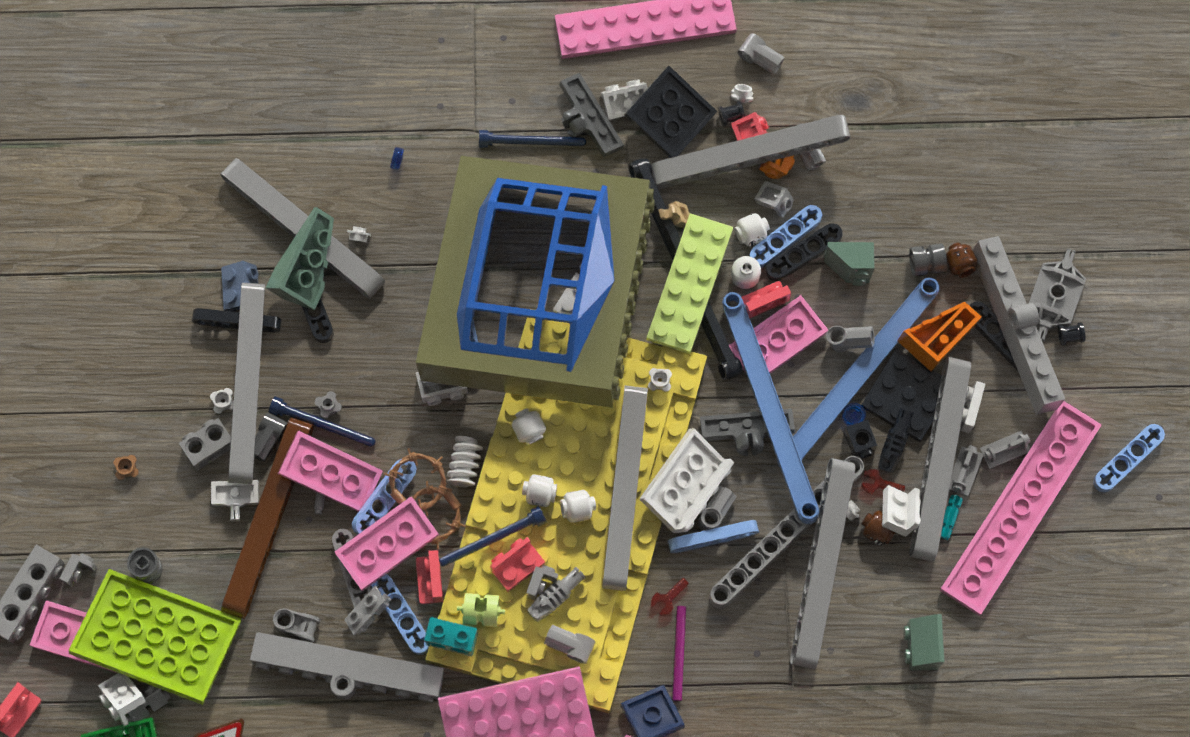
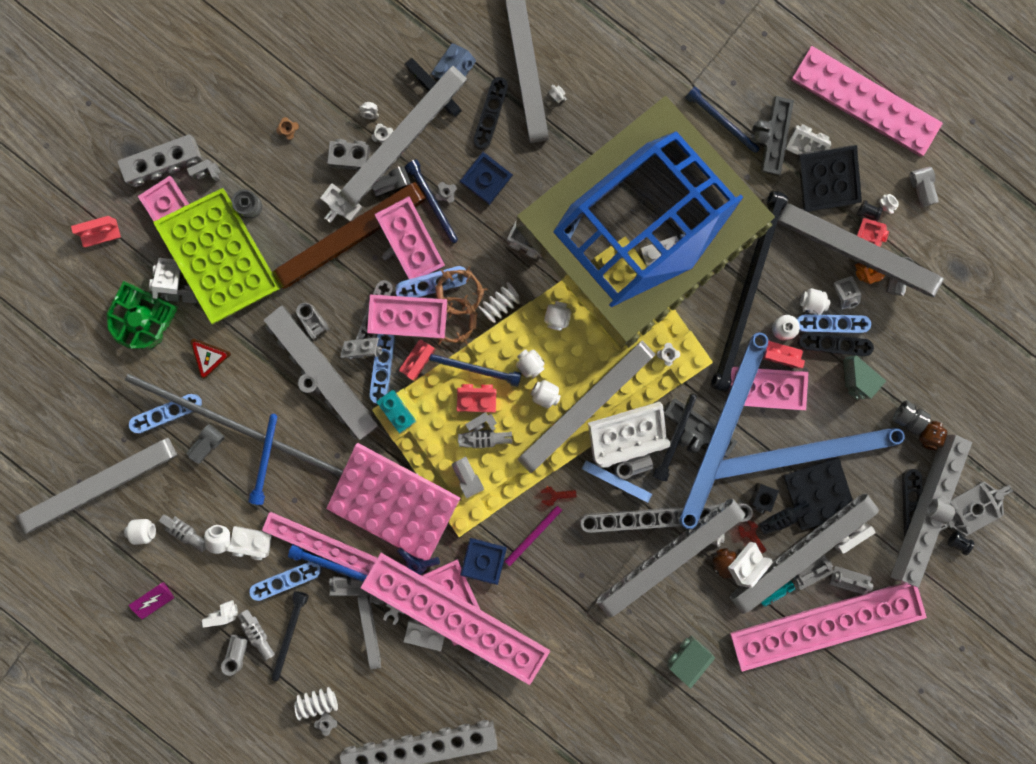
camera: 40 degrees right, 15 degrees up
(192, 388) = (369, 110): none -> white plate
(302, 266) = (503, 85): sand green wedge -> none
(355, 362) = (486, 178): none -> dark blue plate
(397, 158) = (625, 61): clear blue tile -> none
(480, 610) = (429, 410): yellowish green wheel -> none
(677, 212) = (775, 251): tan plate -> none
(689, 283) = (743, 306): yellowish green plate -> none
(747, 492) = (662, 472): none -> black piece
(852, 338) = (817, 429): light grey piece -> none
(853, 414) = (773, 477): clear blue tile -> none
(940, 335) = (871, 475): orange wedge -> none
(1130, 459) = (924, 648): light blue beam -> none

